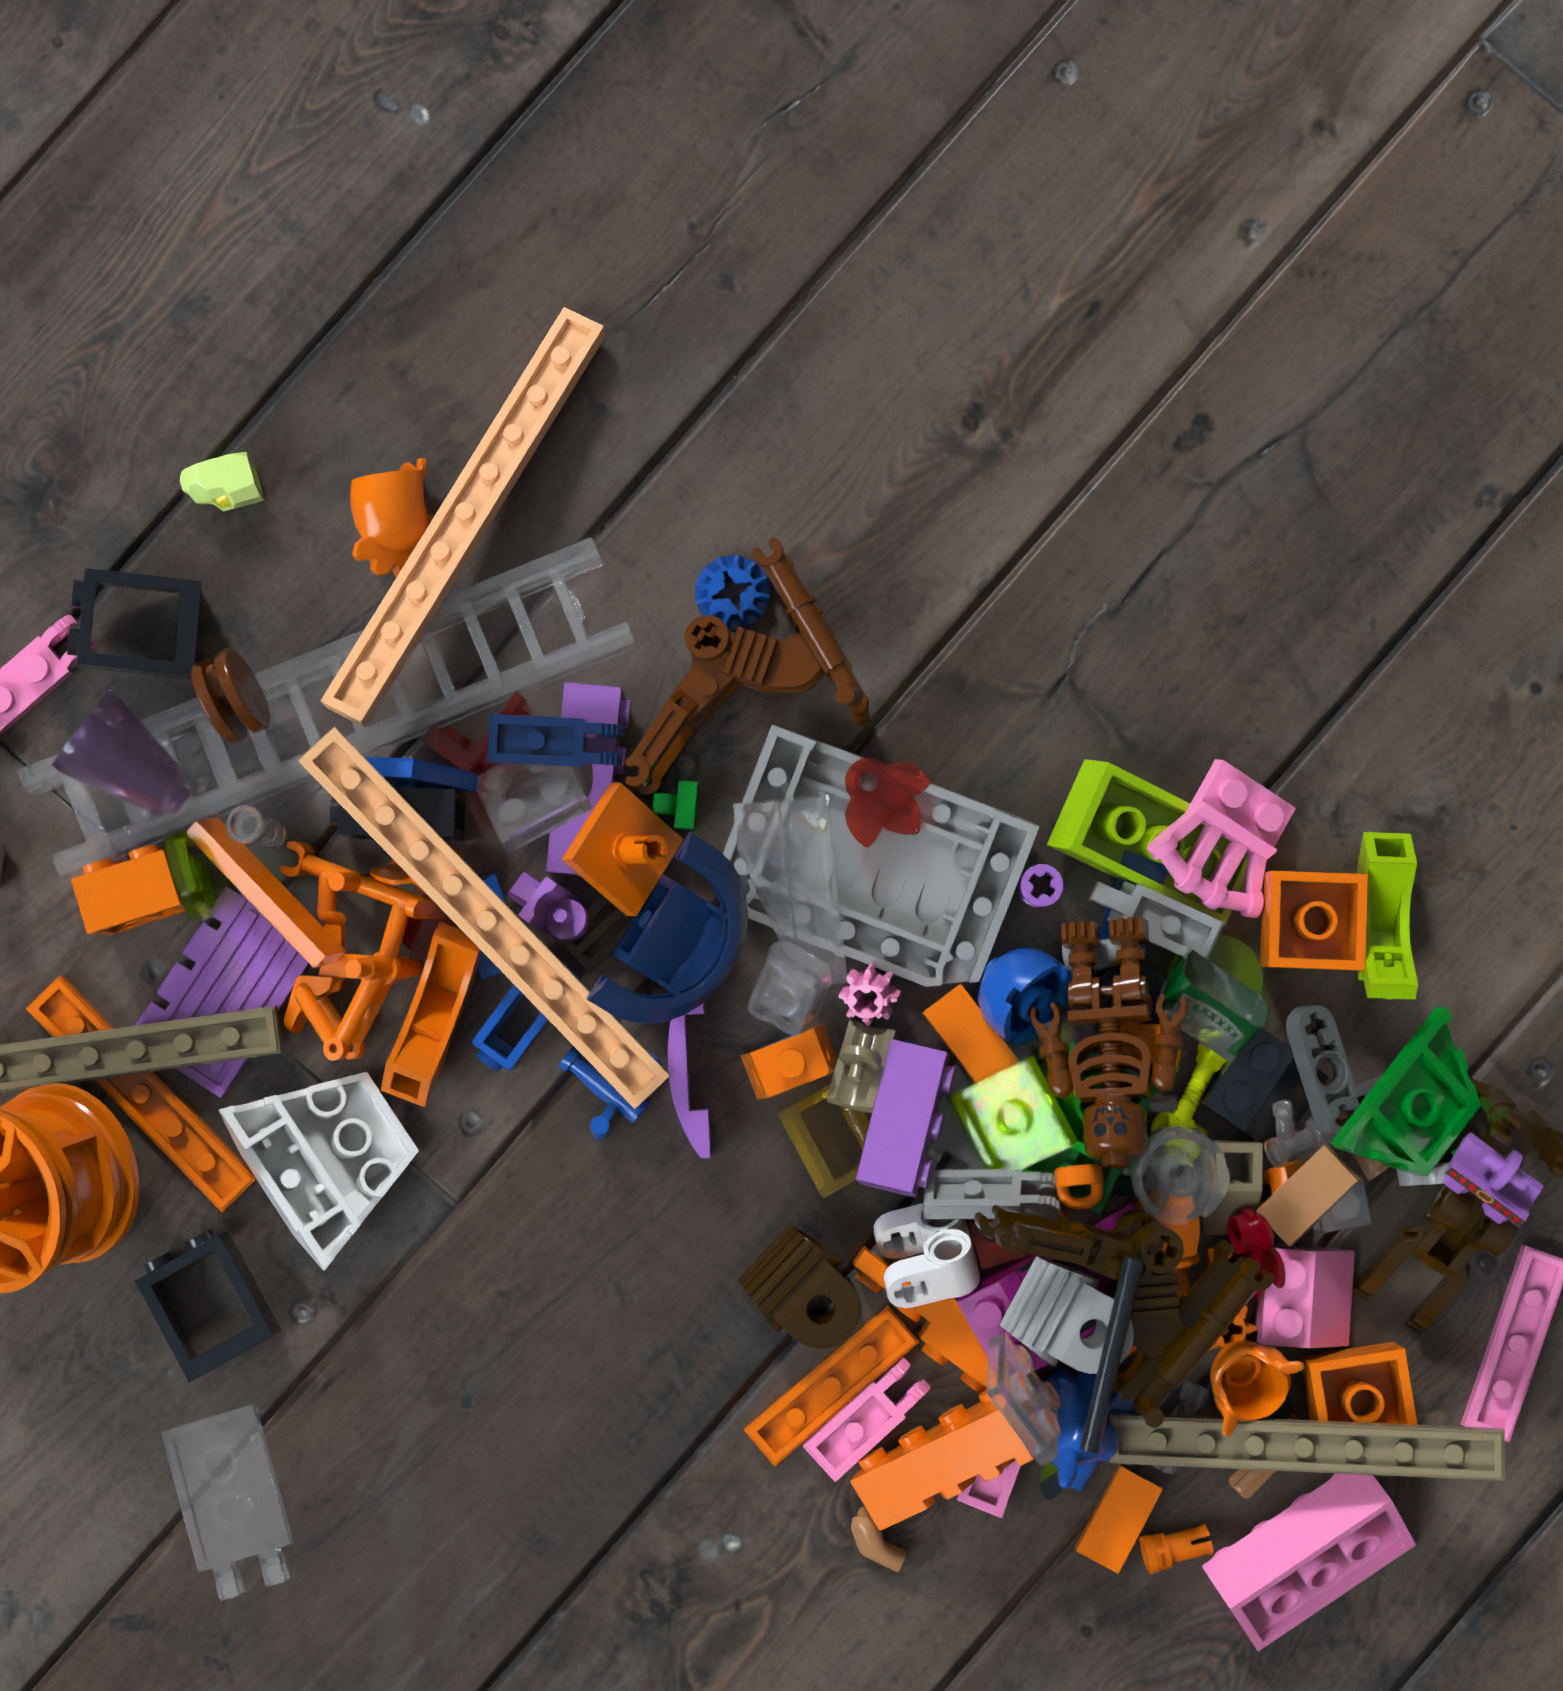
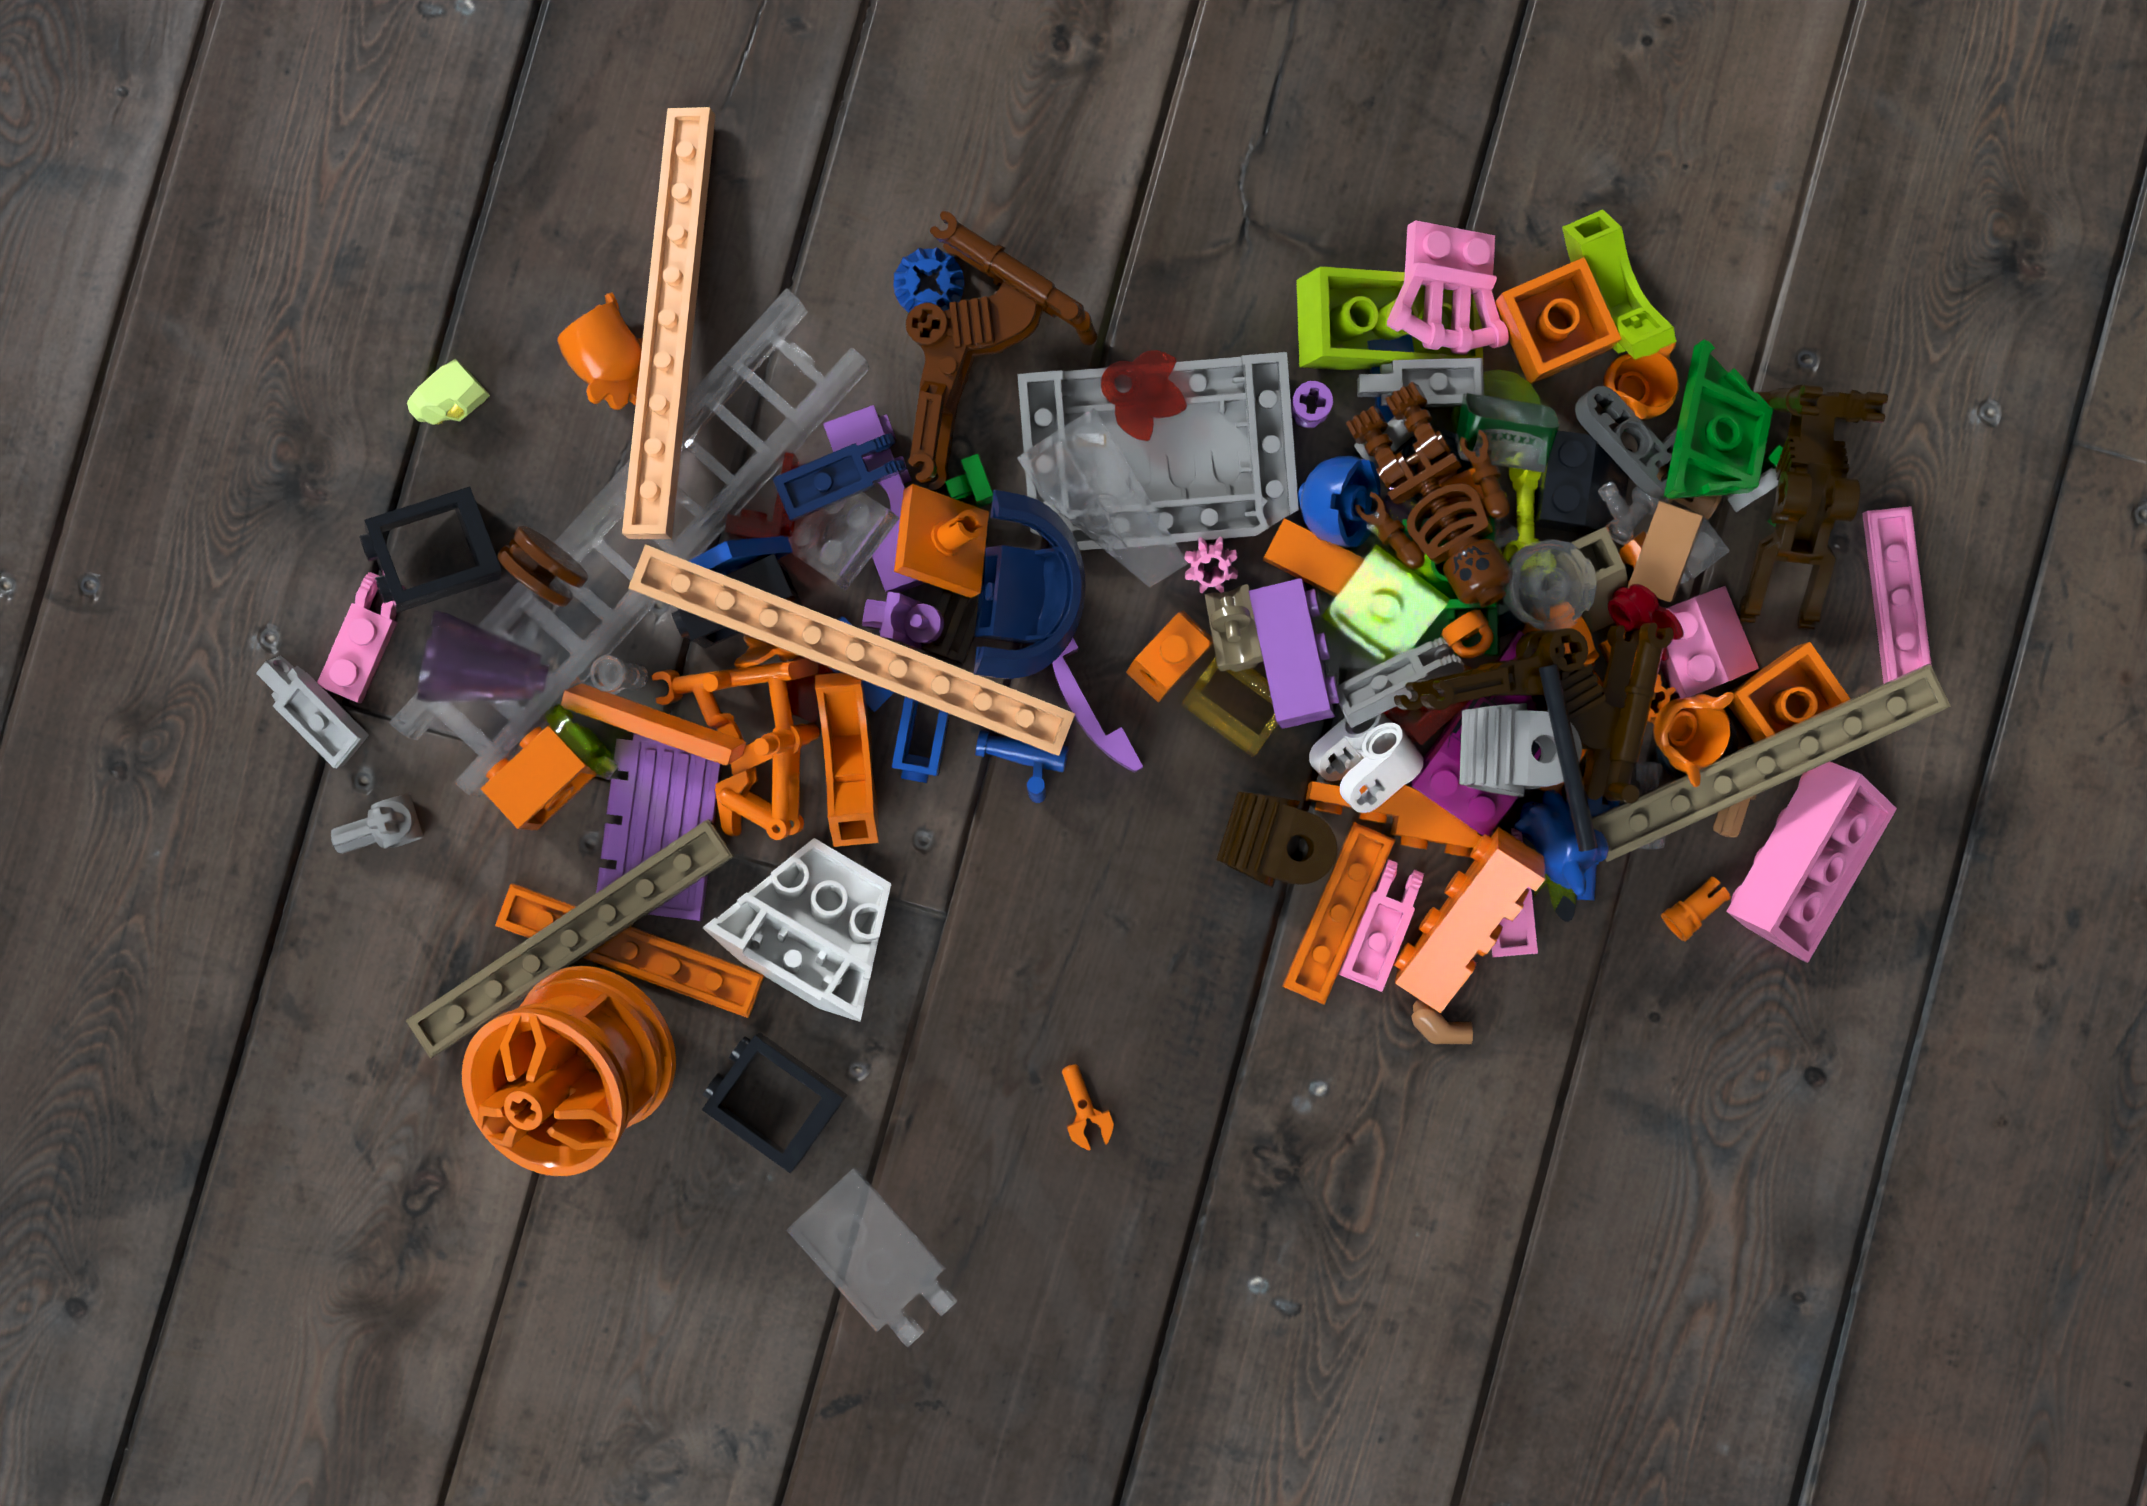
camera: 30 degrees left, 0 degrees up
(498, 1455) = (1084, 1109): none -> orange bar
(790, 987) = (1140, 590): clear piece -> none
(1023, 1398) = (1512, 836): clear plate -> none
(1118, 1518) = (1636, 907): orange tile -> none
(1368, 1025) = (1645, 384): none -> orange hair
(1494, 1179) = (1820, 451): medium lavender hips -> none

